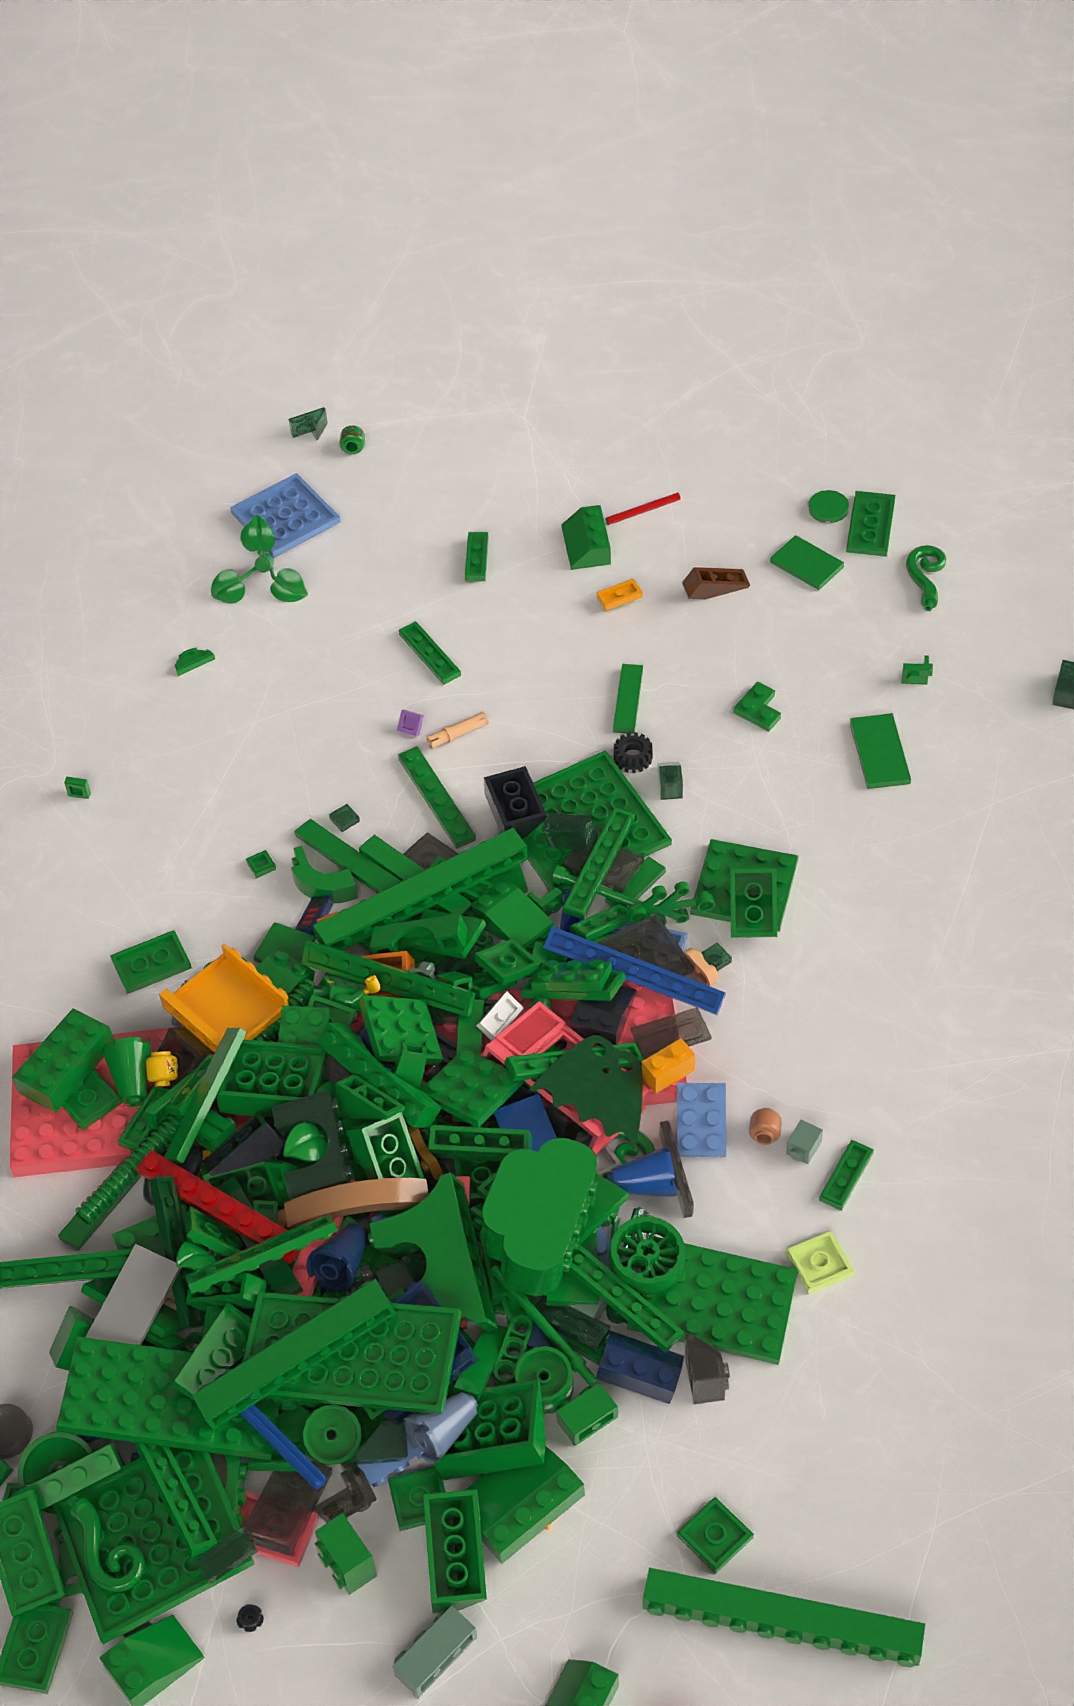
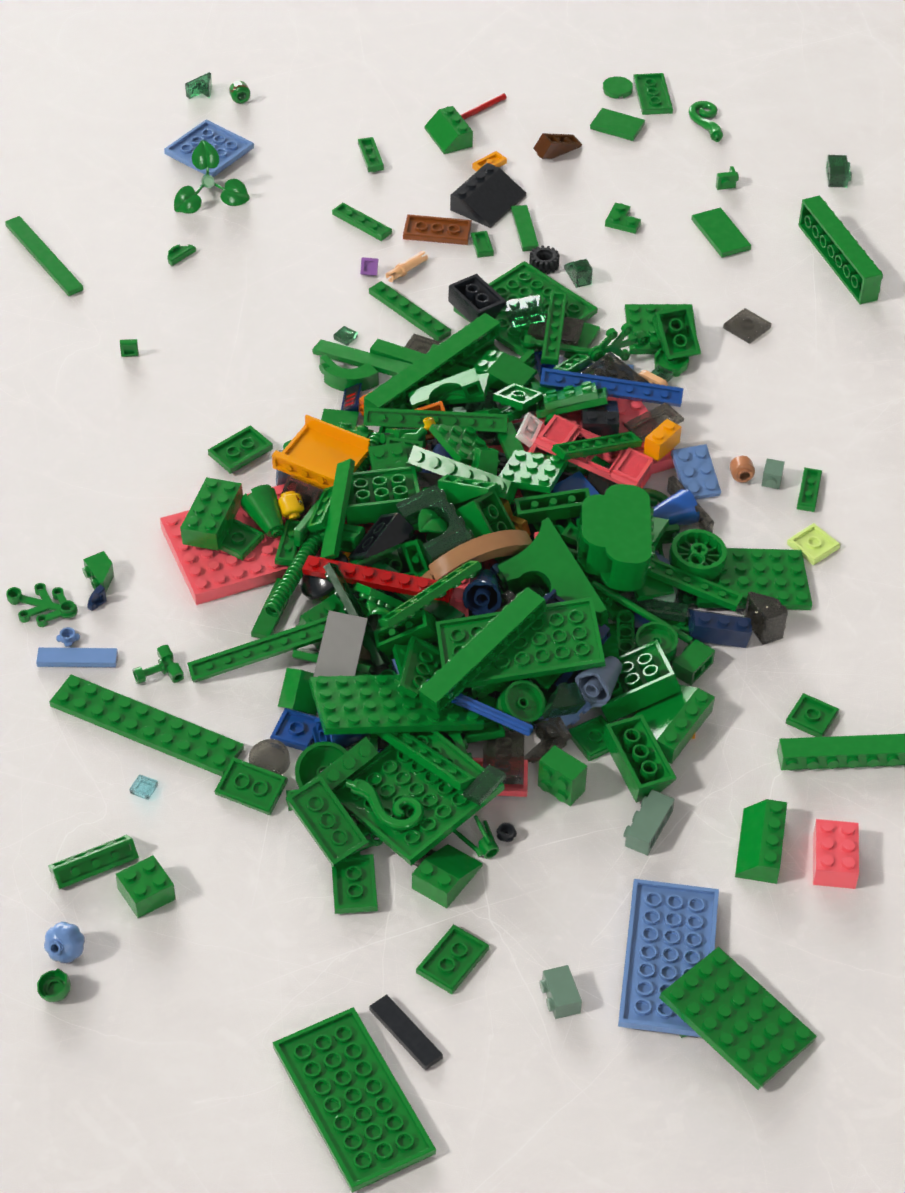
camera: 20 degrees left, 5 degrees down
(34, 635) = (44, 256): none -> green tile
(47, 1393) = (295, 729): none -> blue tile
(217, 1634) = (487, 844): none -> green plant
(260, 864) = (295, 375): green tile -> none
(518, 681) = (437, 229): none -> dark orange tile
(565, 713) = (482, 244): none -> green tile
(596, 643) = (486, 196): none -> black slope
(608, 1097) = (625, 463): dark green piece -> none
(633, 1202) = (667, 536): none -> green plate
(735, 948) = (676, 366): none -> green plate
(860, 901) = (747, 325): none -> clear smoke tile
(1024, 811) = (840, 250): none -> green brick

